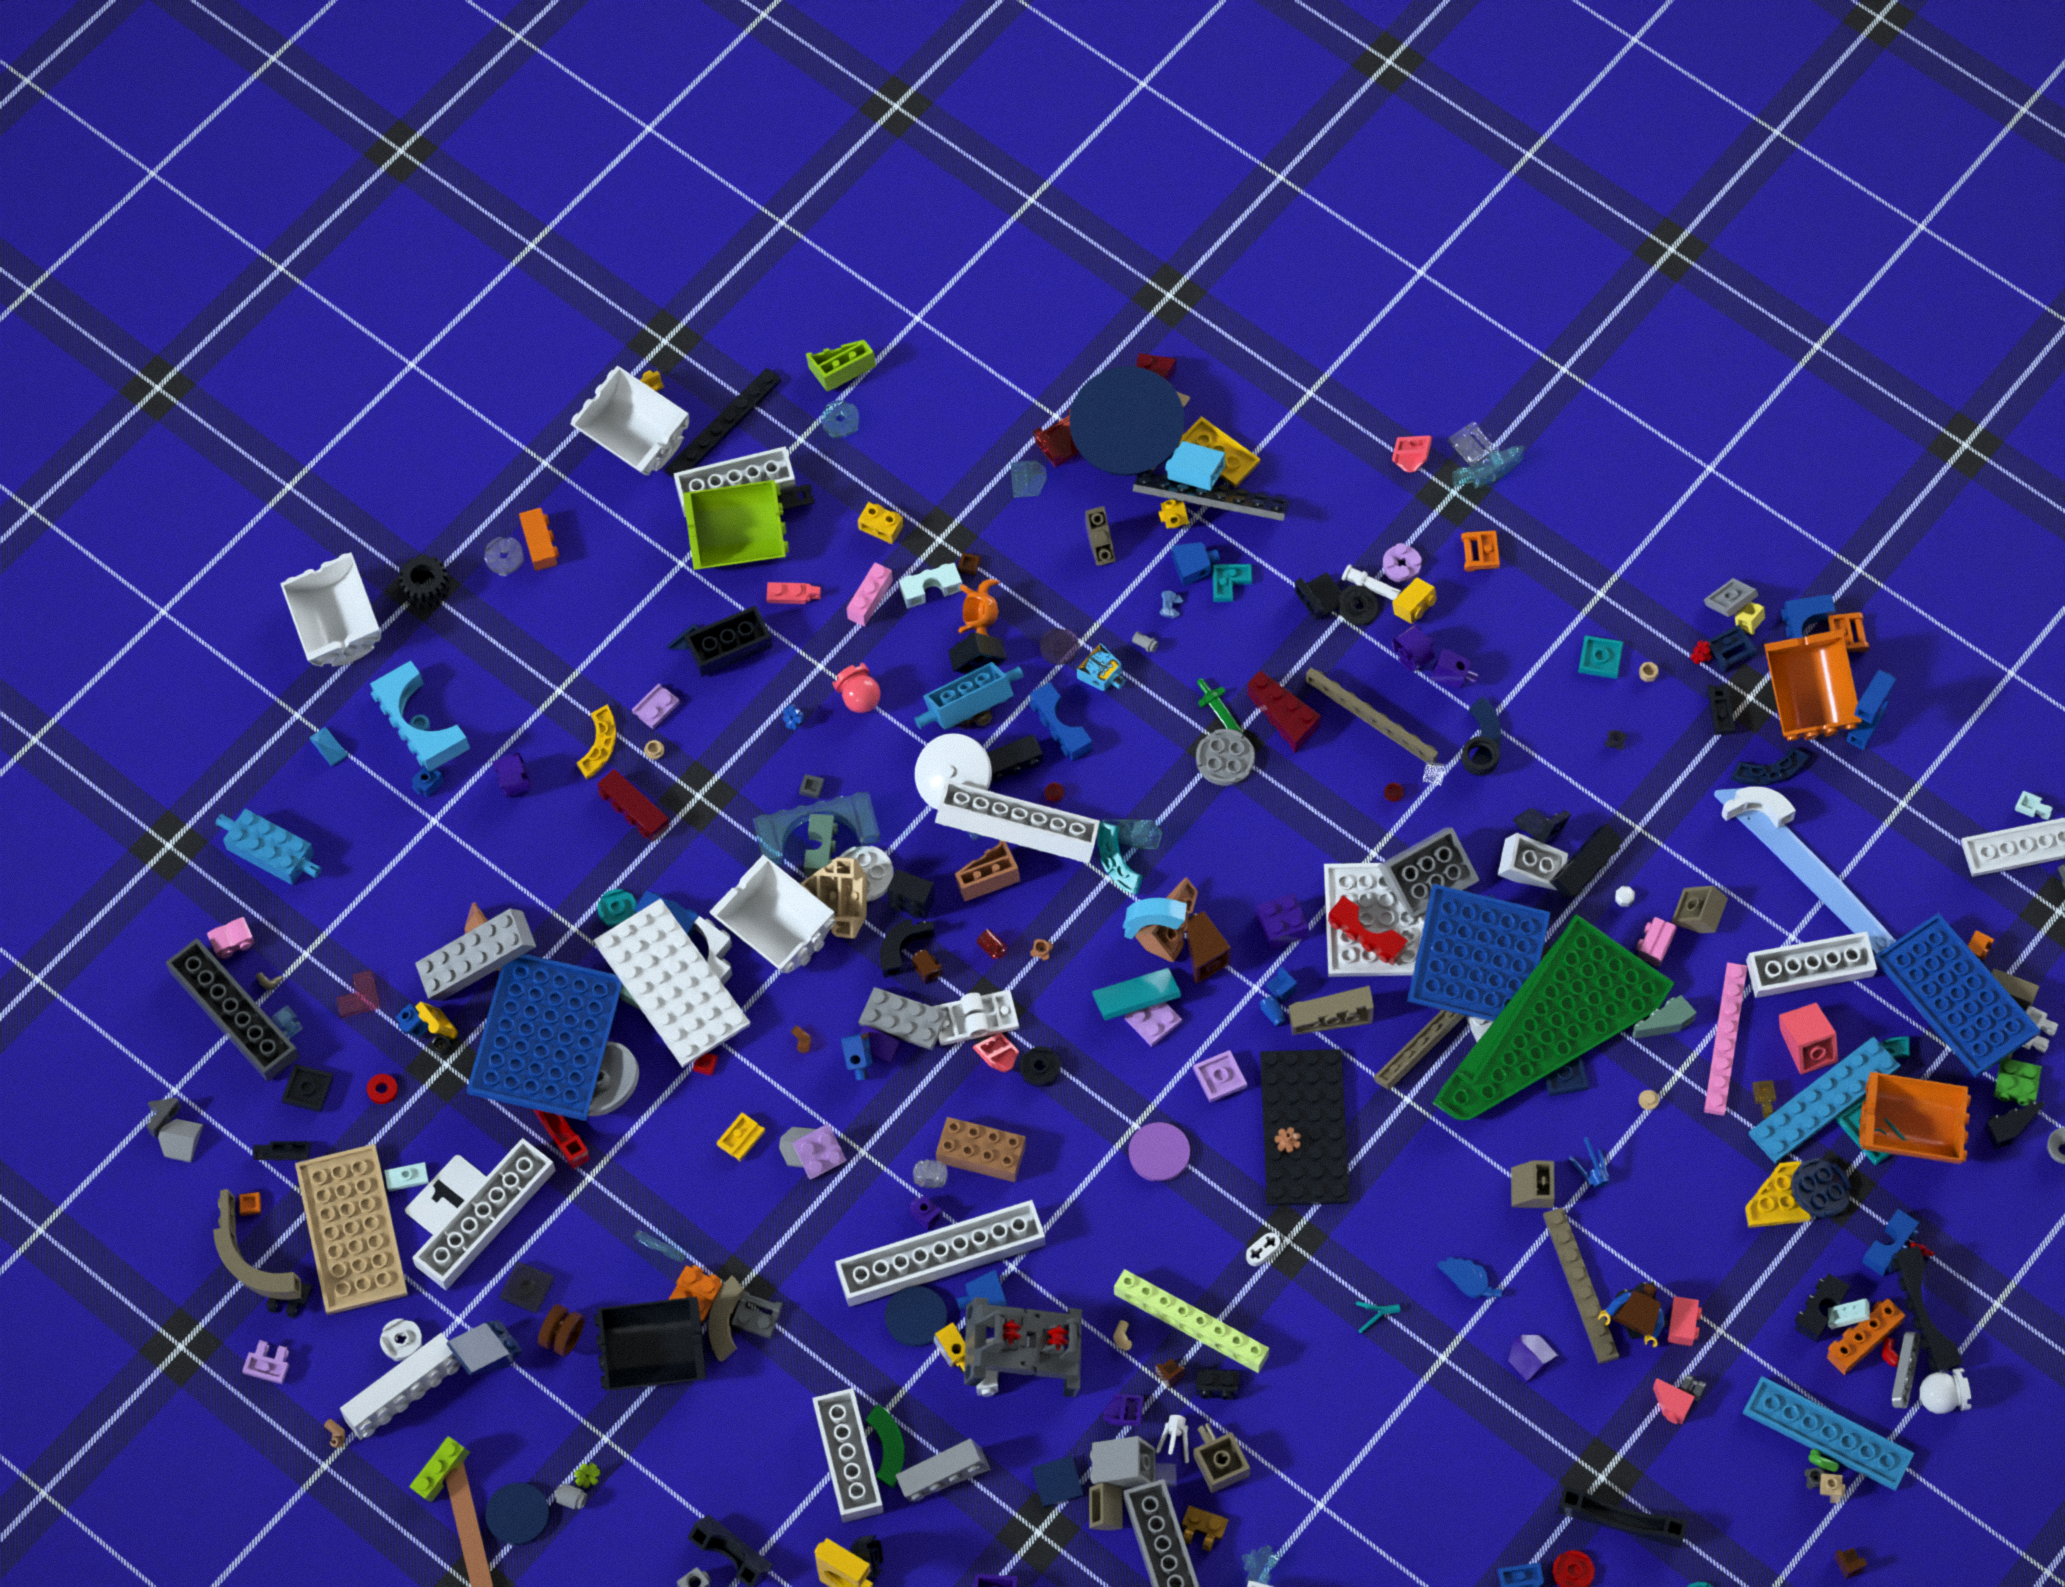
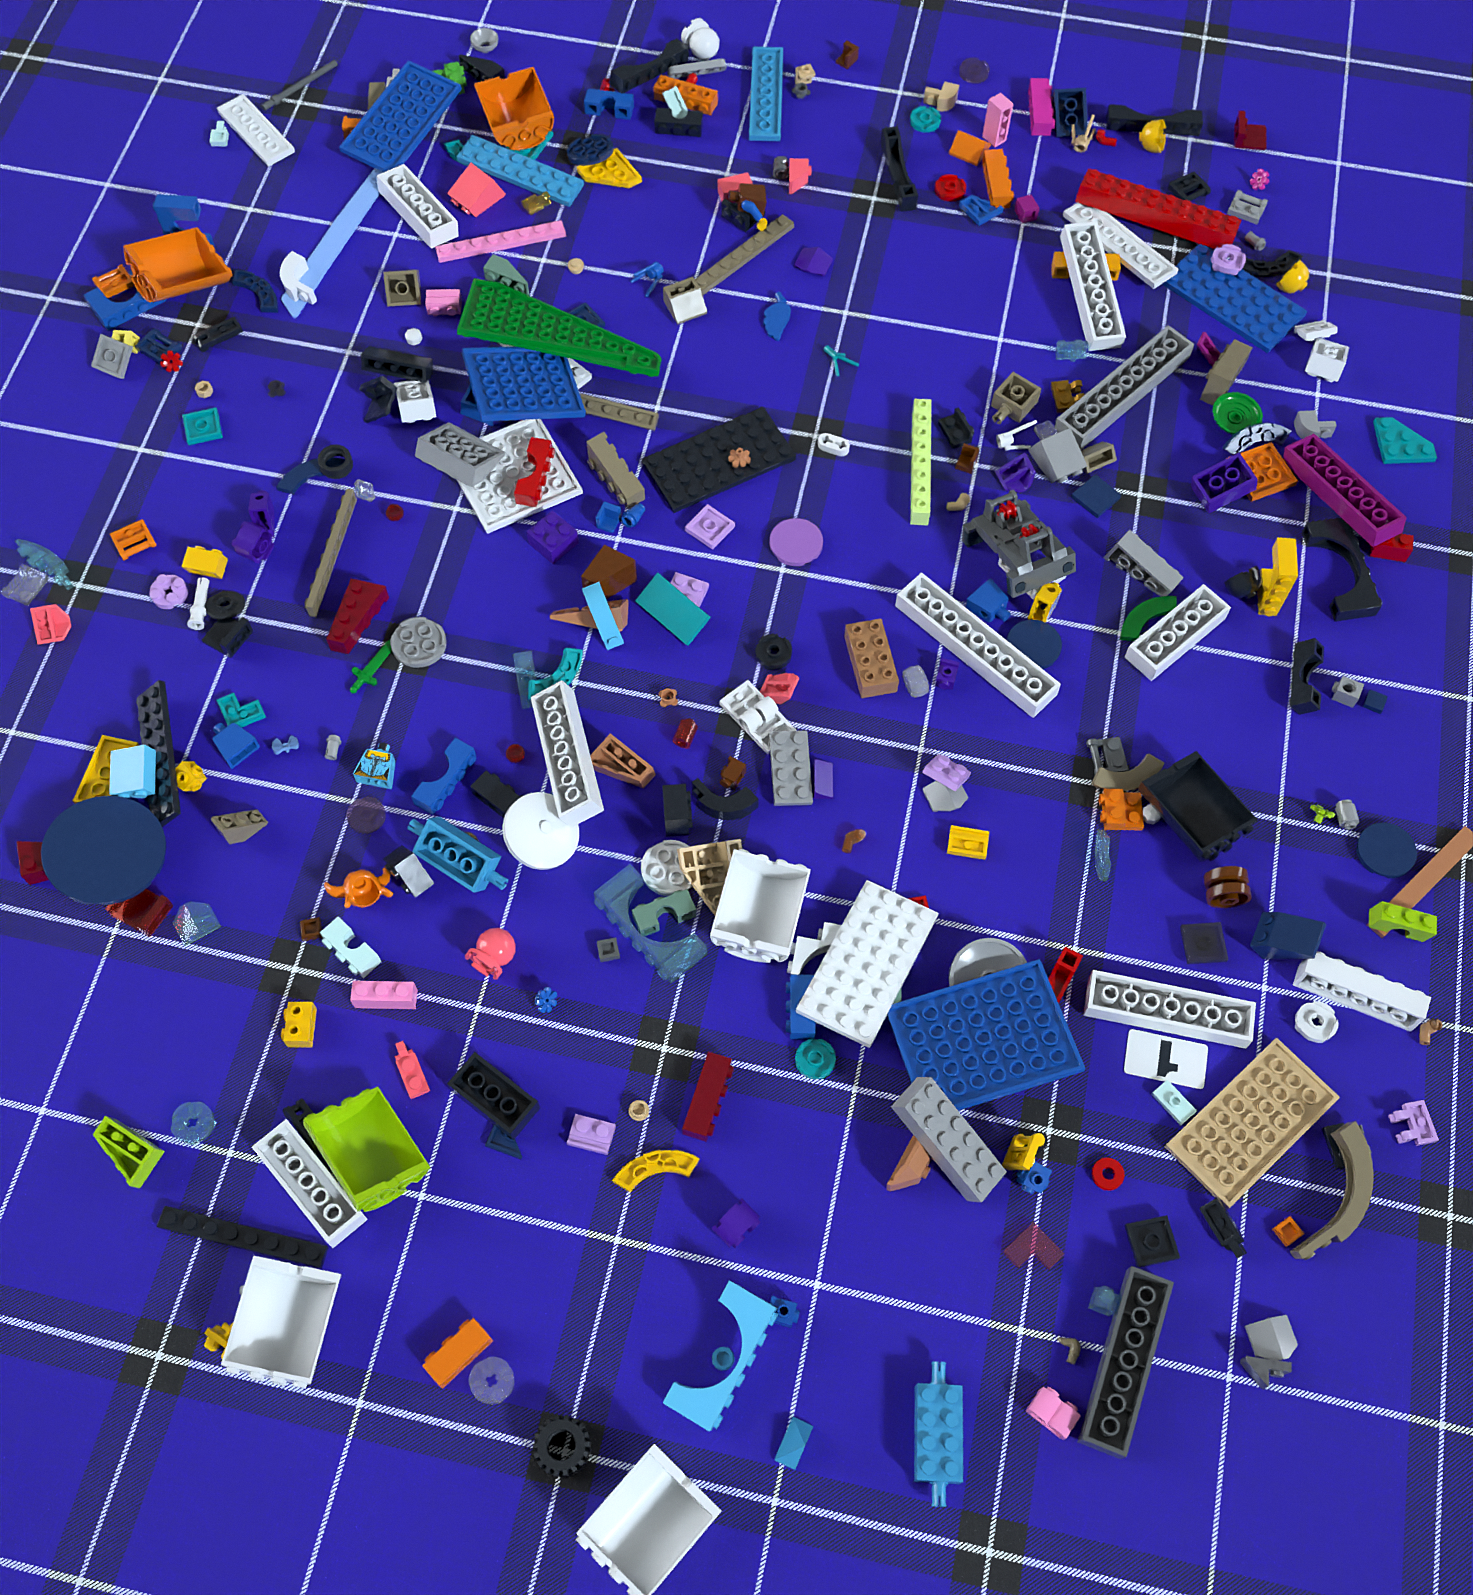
camera: 120 degrees left, 0 degrees up
(857, 1045) = (851, 777): blue torso -> none
(1815, 1458) = (789, 88): bright green arm -> none

